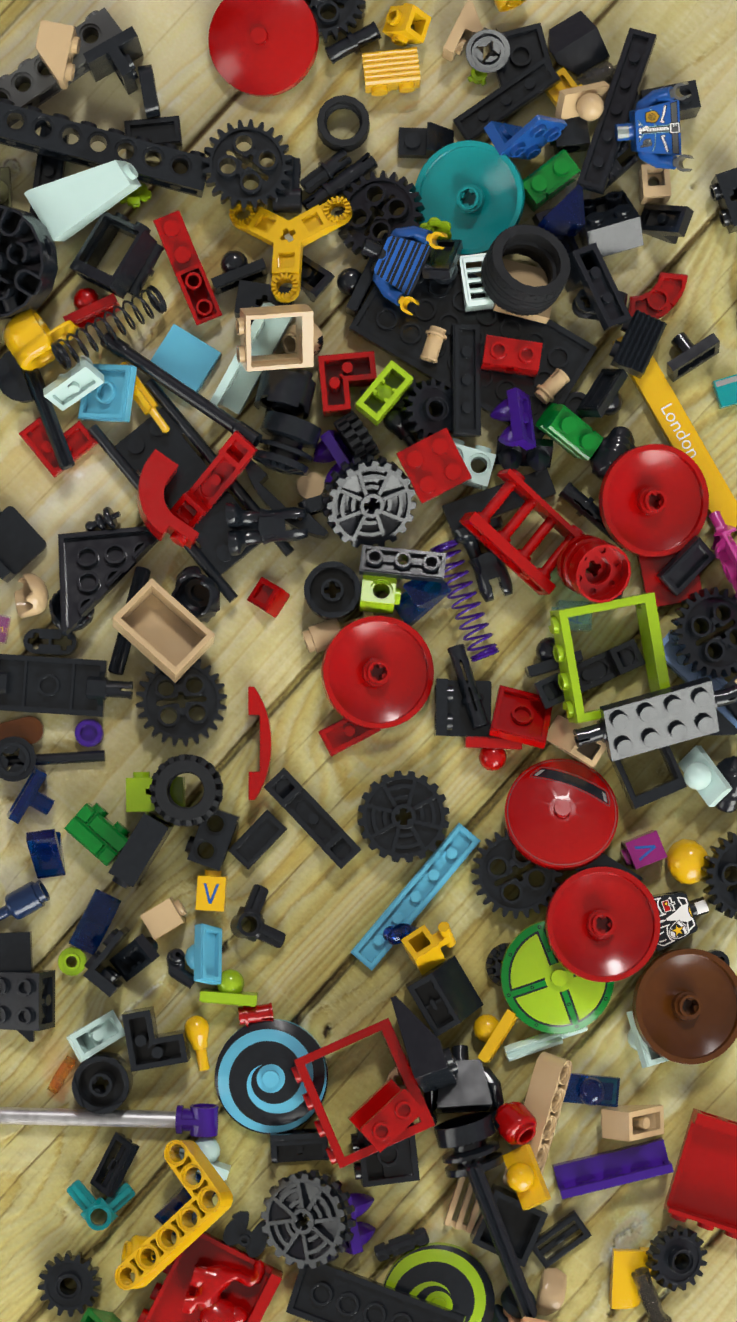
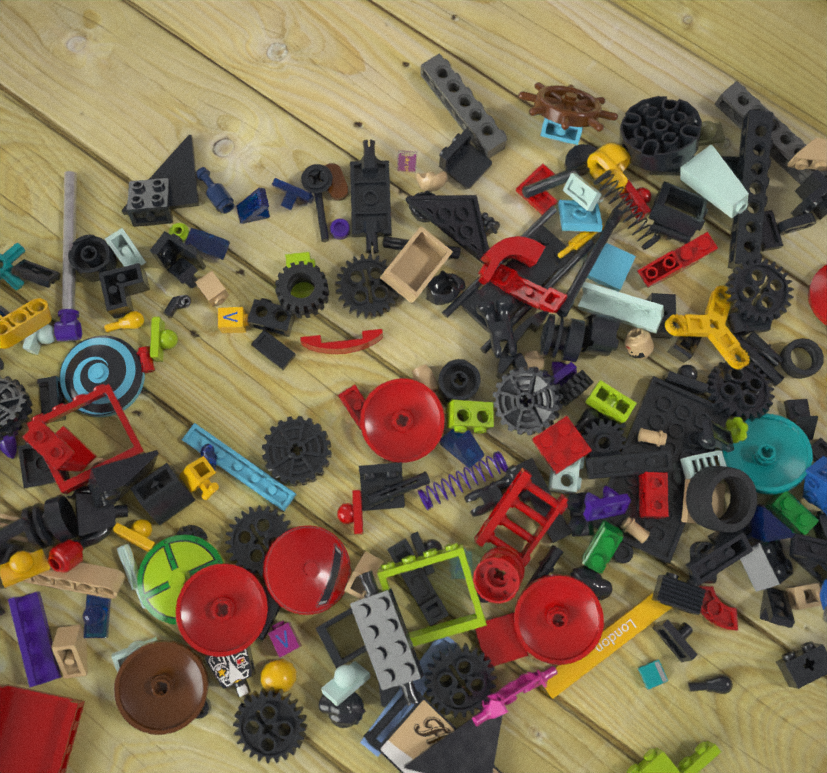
camera: 85 degrees right, 10 degrees down
(51, 635) = (396, 198): black beam -> none
(61, 1074) = (97, 230): clear orange tile -> none
(98, 833) = (269, 240): green brick -> none
(140, 850) = (256, 264): black brick -> none
(141, 193) = (722, 221): lime plant -> none
(206, 954) = (186, 319): medium azure tile -> none
(236, 268) = (684, 294): black tile -> none
(258, 928) = (207, 356): black axle -> none
(268, 597) = (448, 340): red slope -> none
(304, 338) = (625, 337): tan window -> none
(312, 818) = (291, 386): black slope -> none
(341, 372) = (618, 371): red brick -> none
(385, 563) = (485, 441): black tile -> none
(400, 261) = (711, 403): torso -> none
(520, 717) = (378, 530): red tile -> none
(604, 395) = (633, 572): black tile -> none
(686, 565) = (510, 651): black tile -> none

